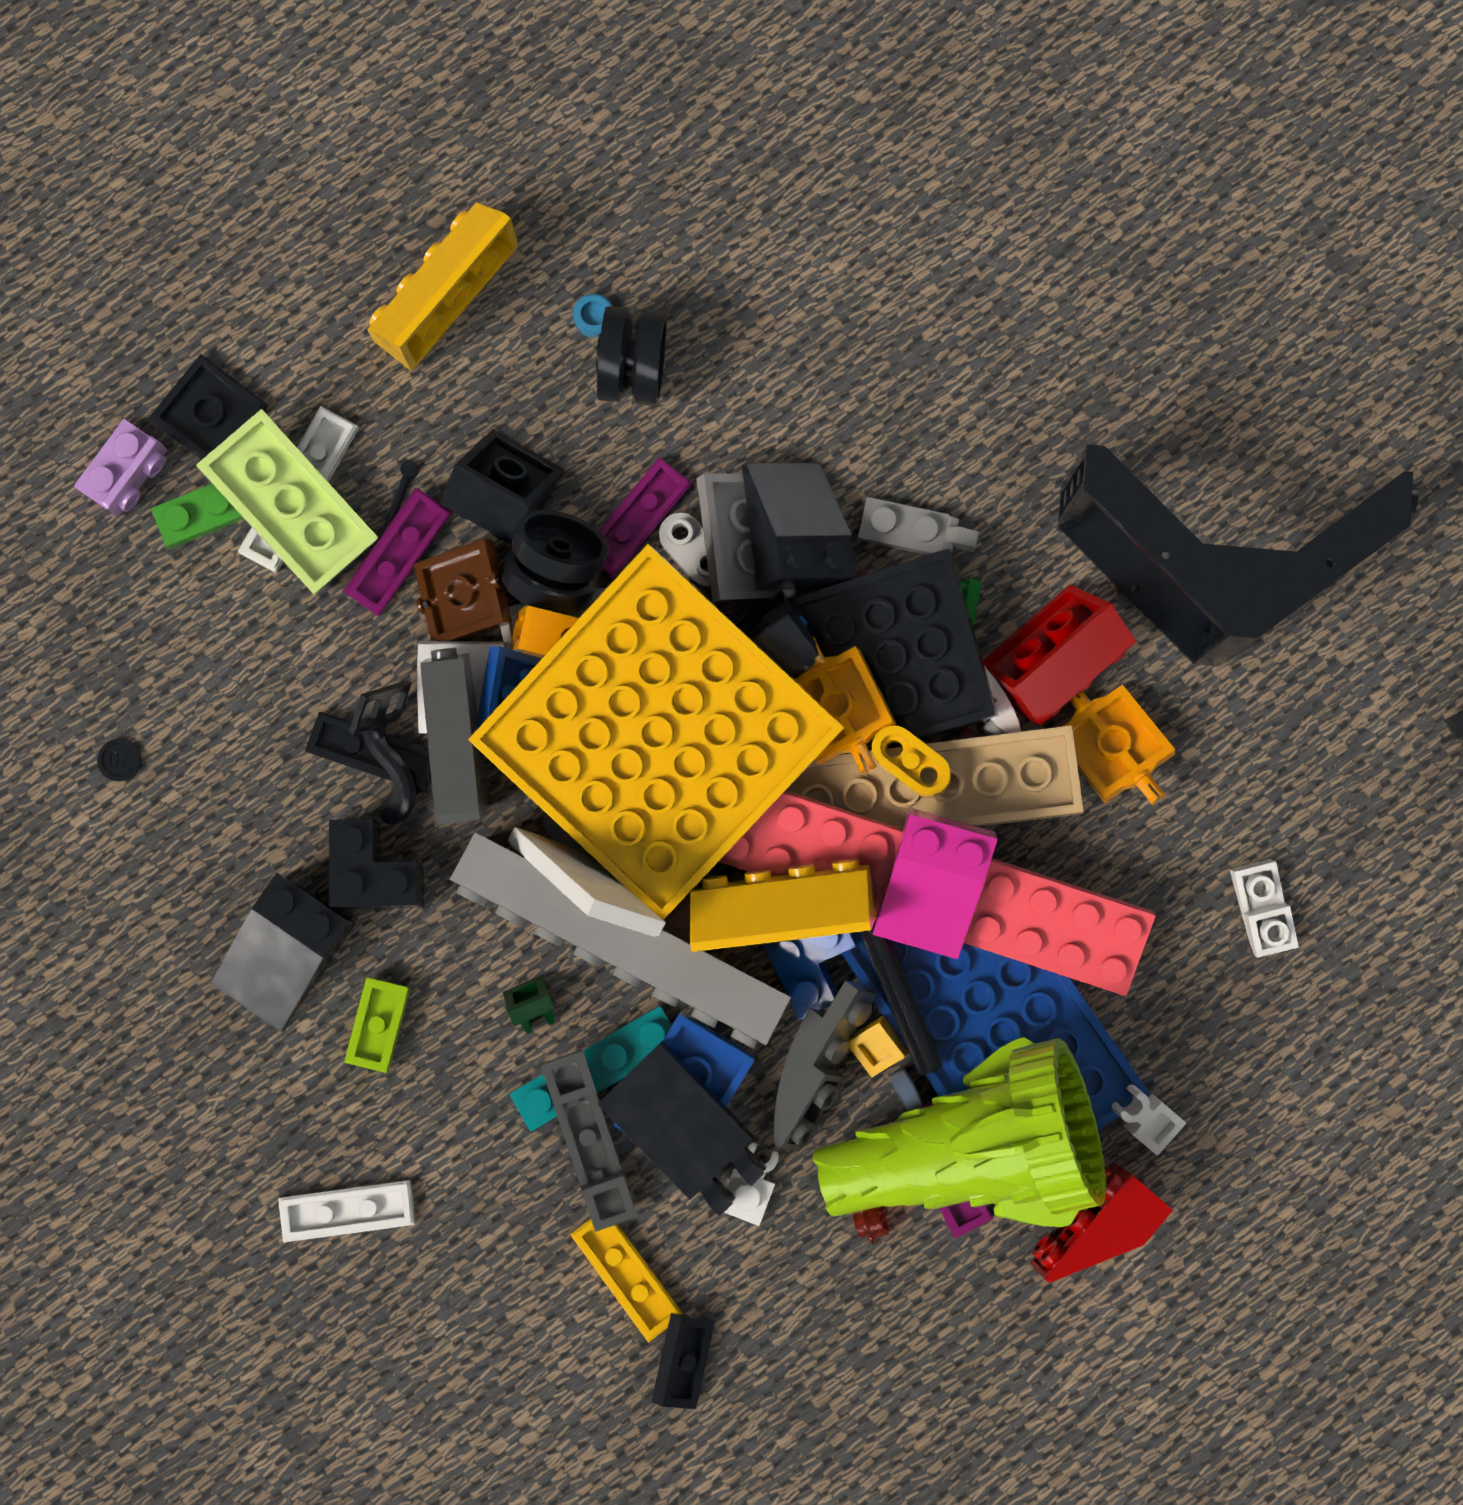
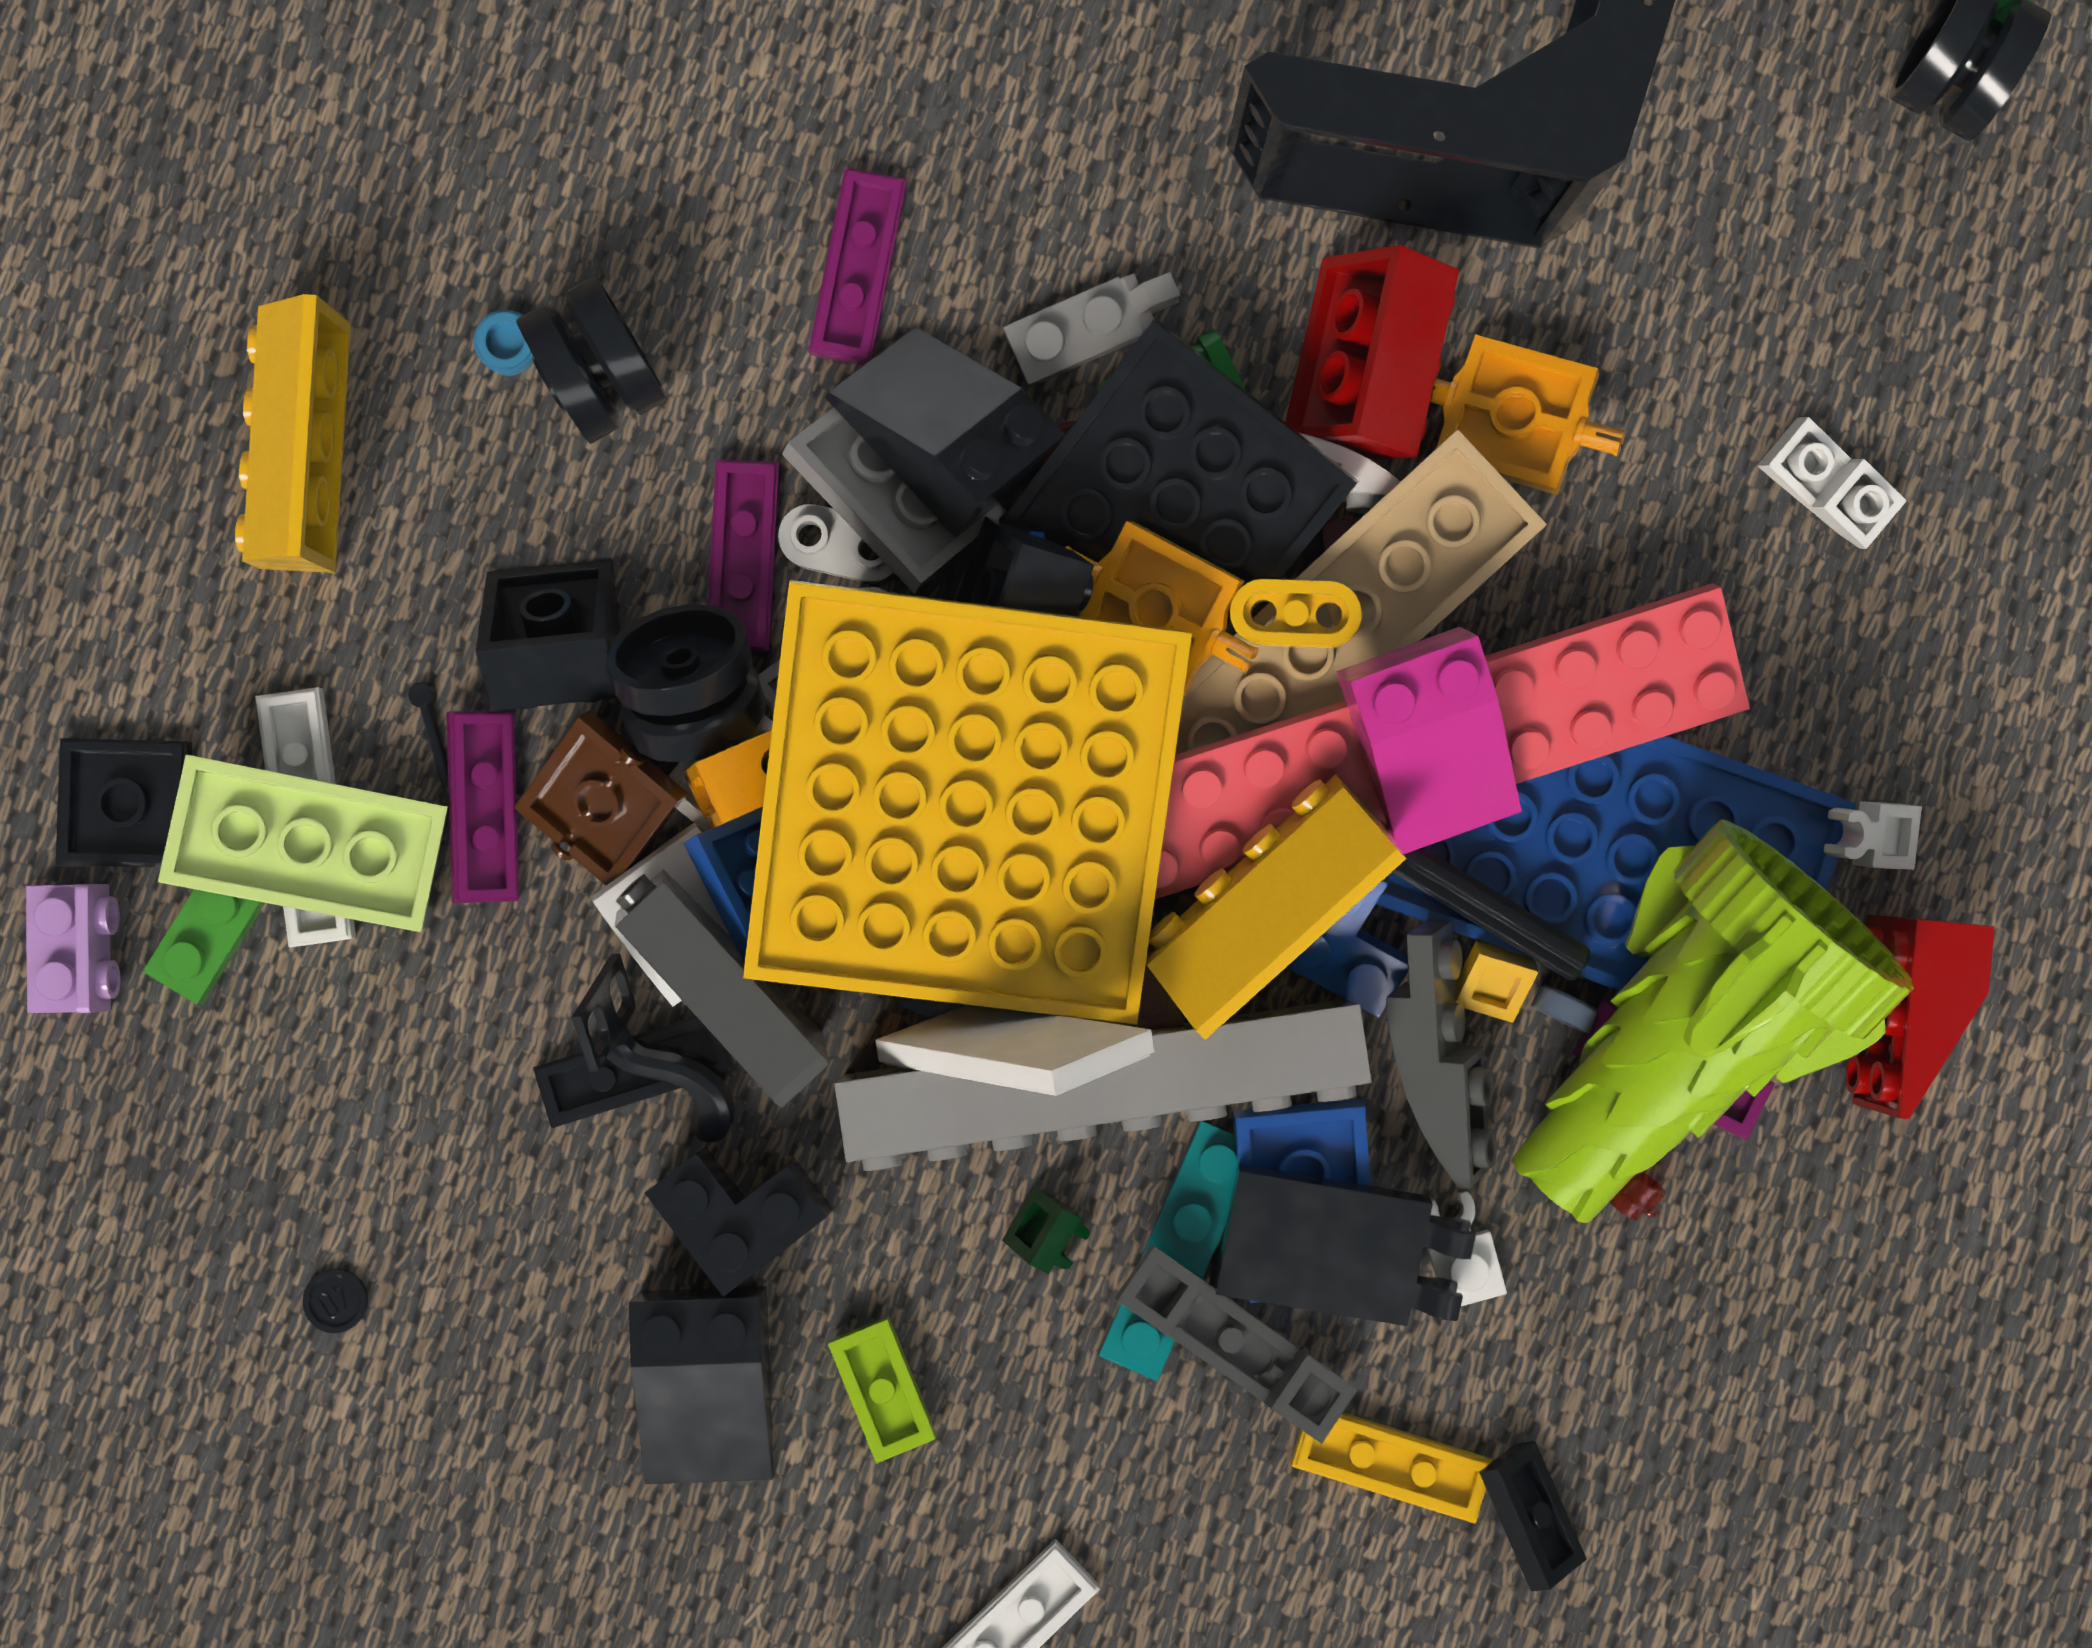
camera: 30 degrees left, 5 degrees up
(812, 409) = (858, 266): none -> magenta tile

